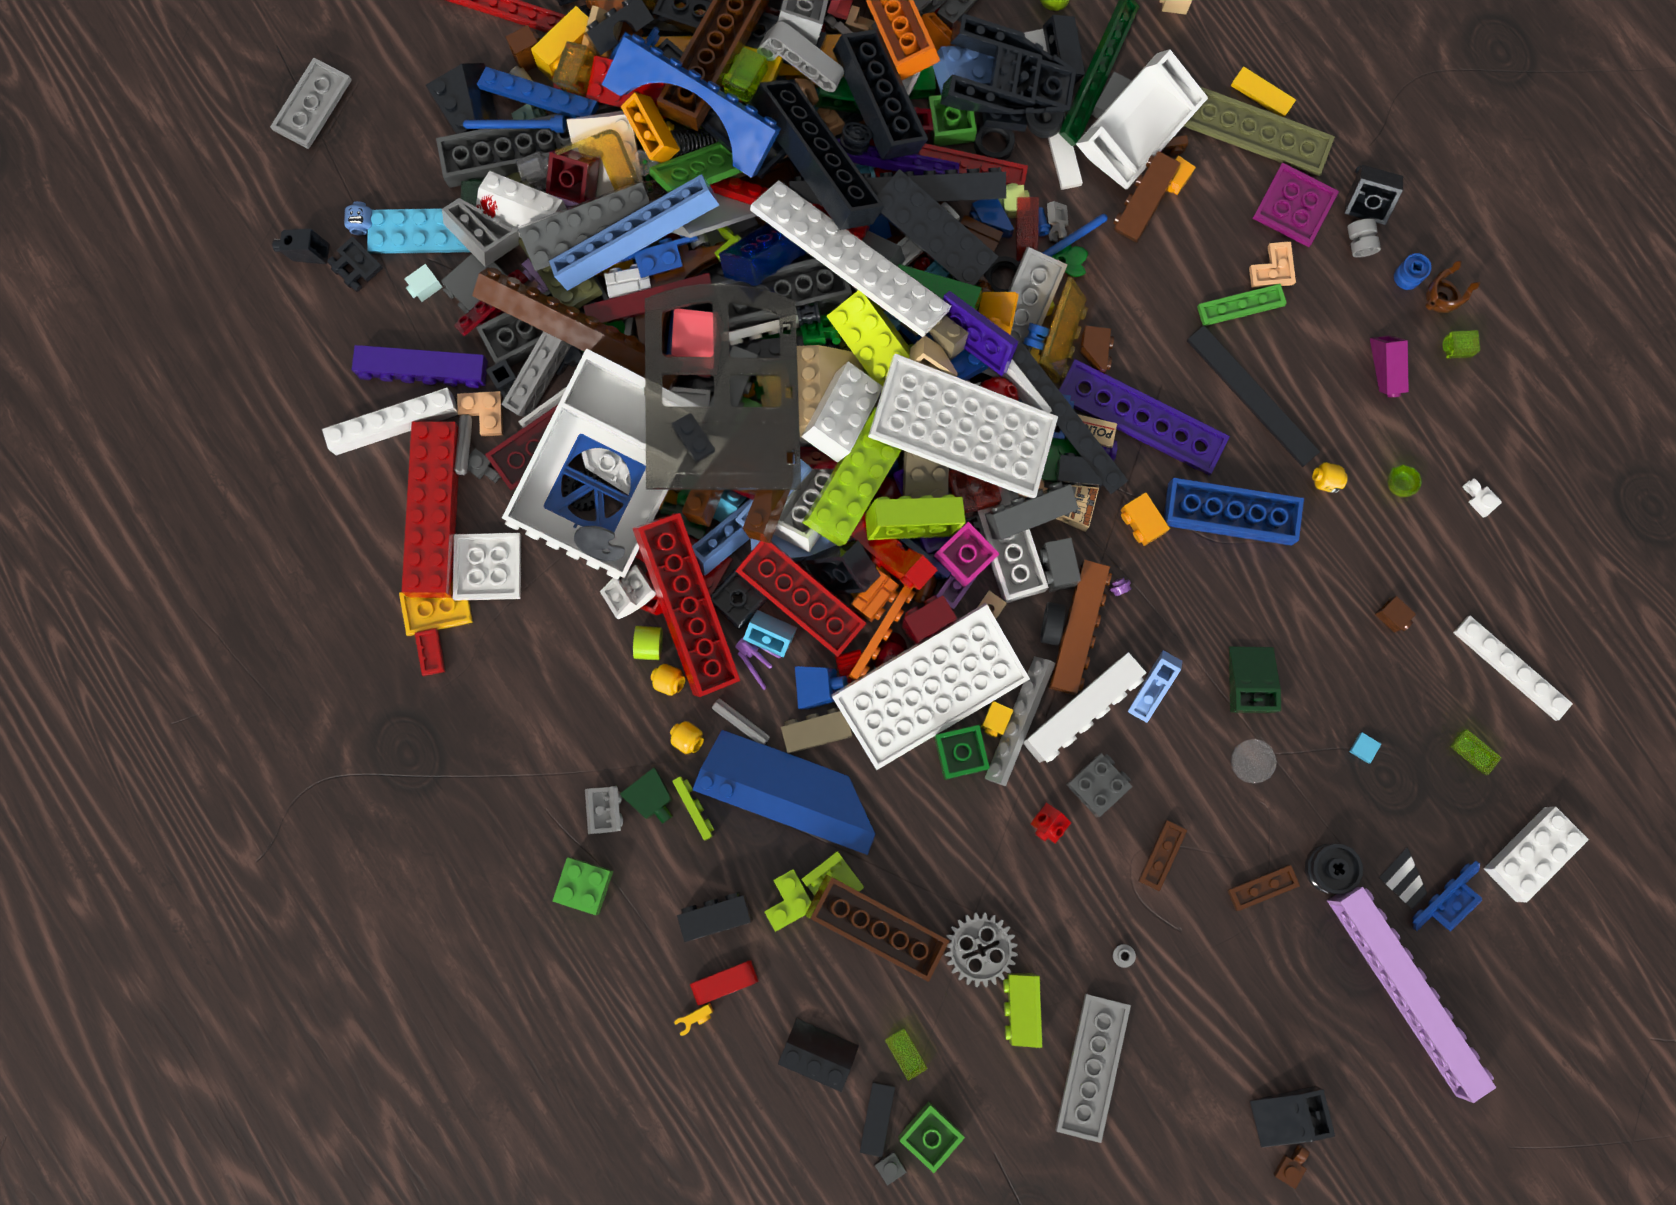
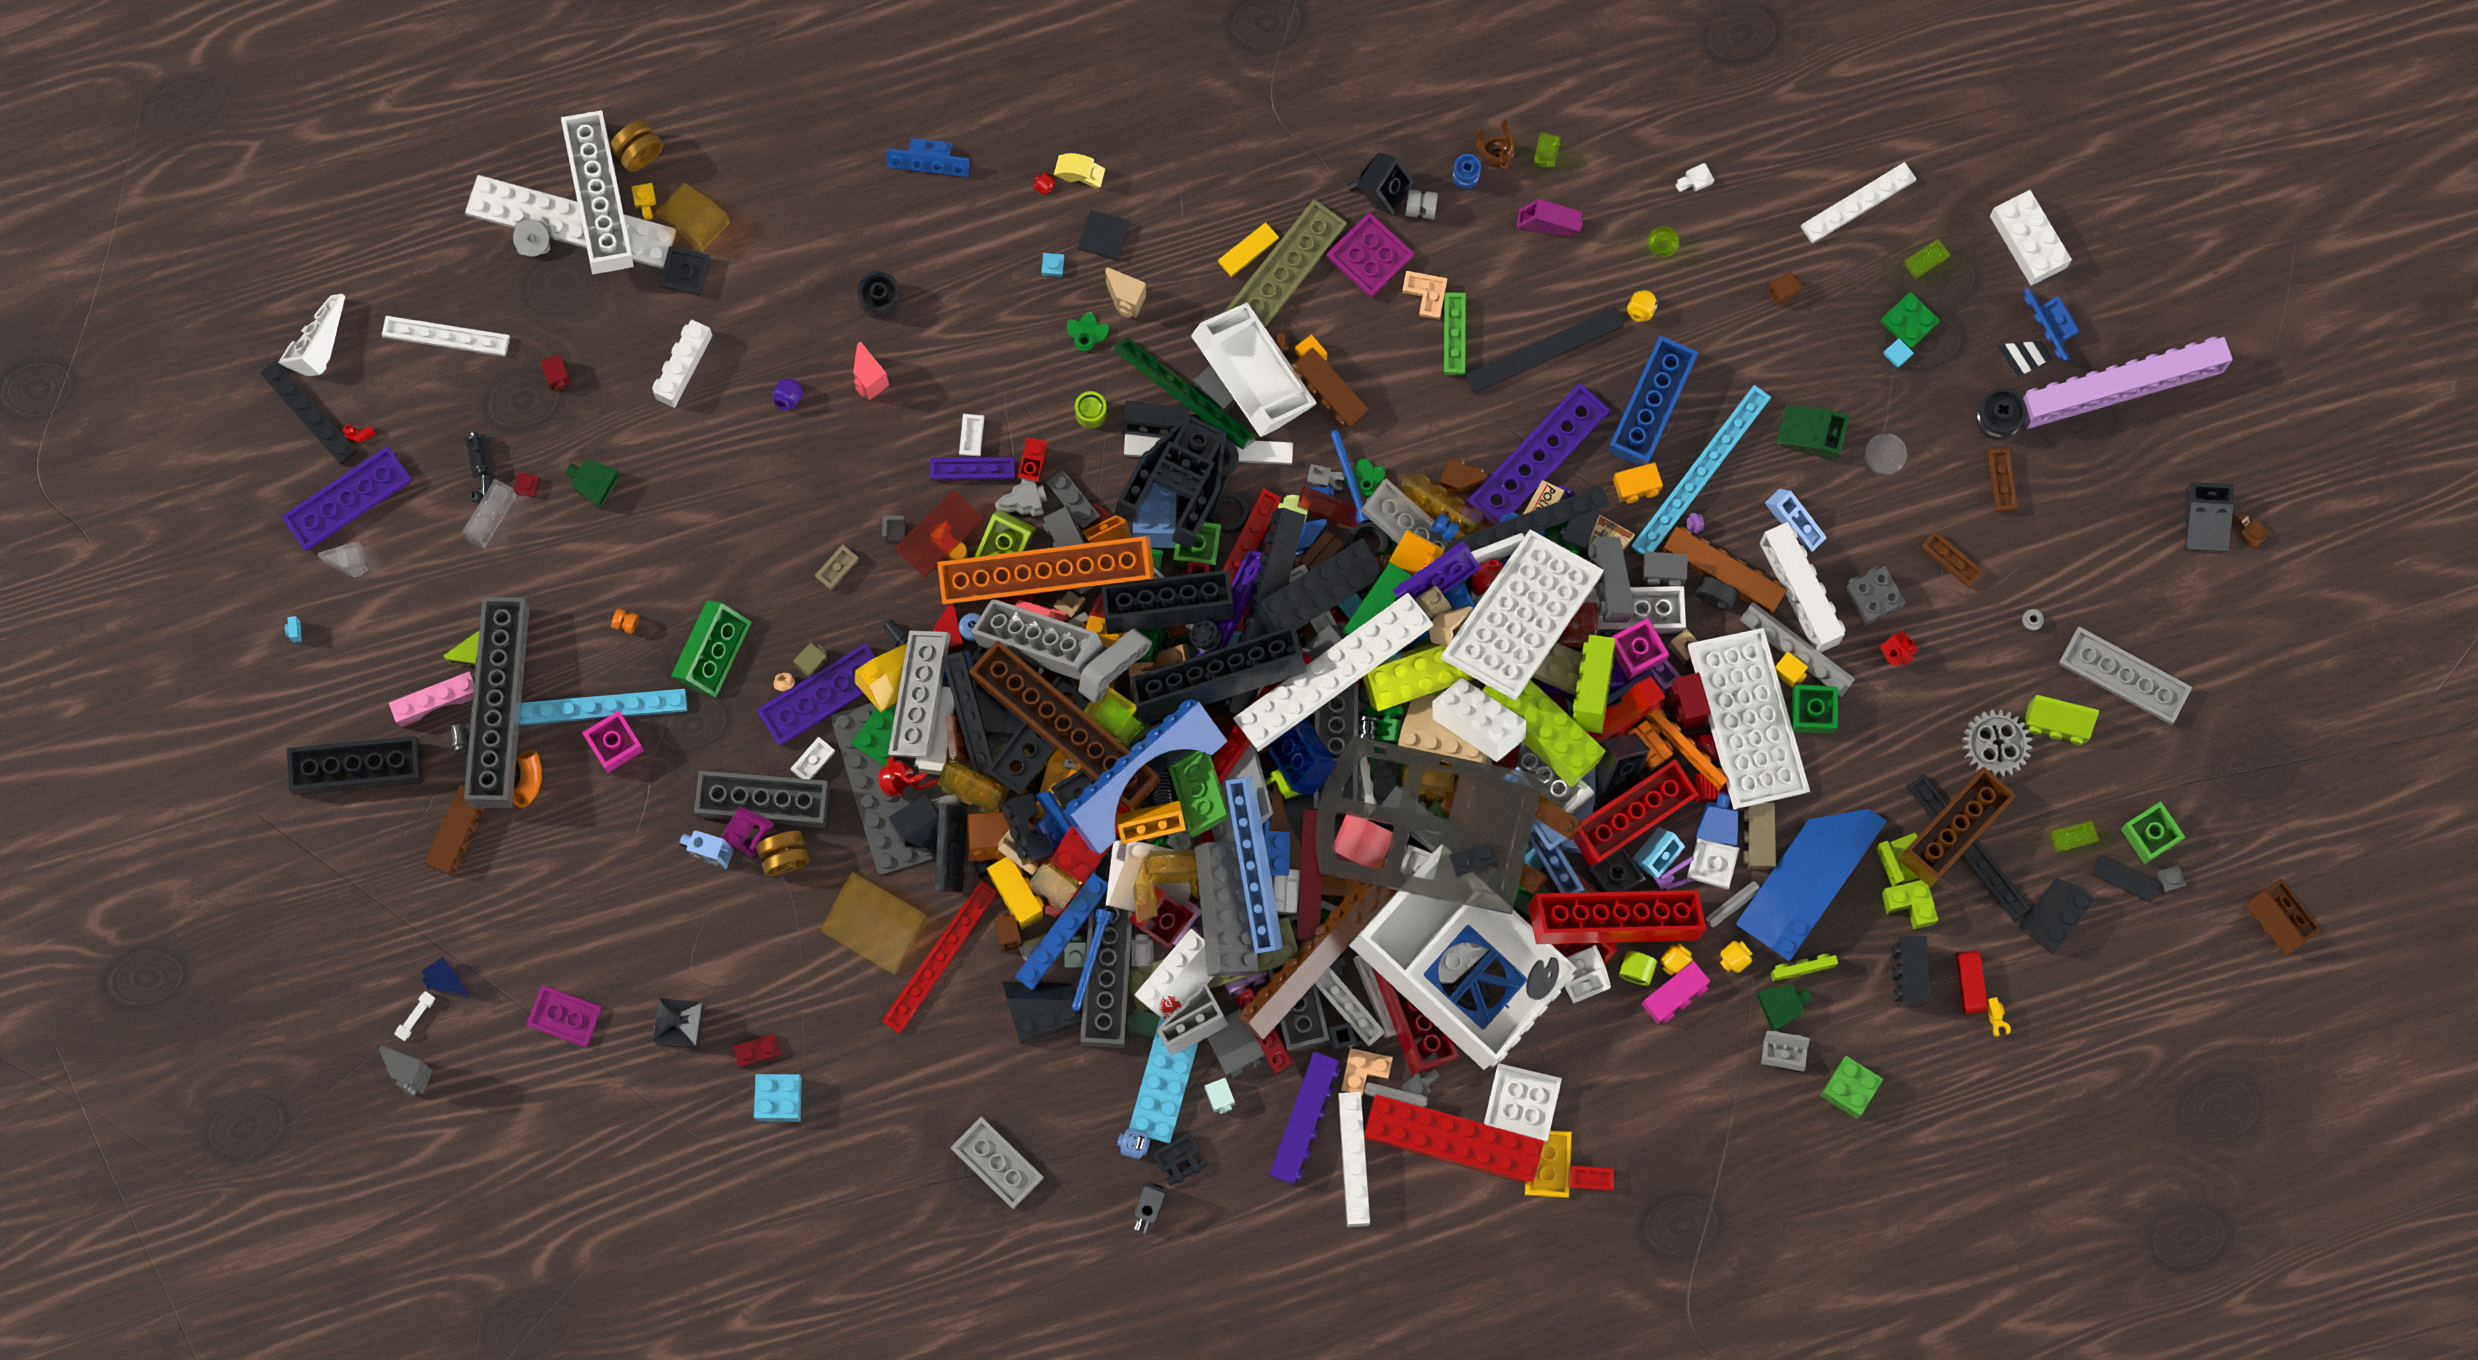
camera: 75 degrees left, 5 degrees down
(633, 688) = (1676, 993): none -> dark pink brick
(775, 691) = (1713, 863): none -> white plate
(858, 956) = (1975, 855): none -> black tile
(1177, 579) = (1701, 471): none -> medium azure plate
(1403, 751) = (1910, 320): none -> green plate

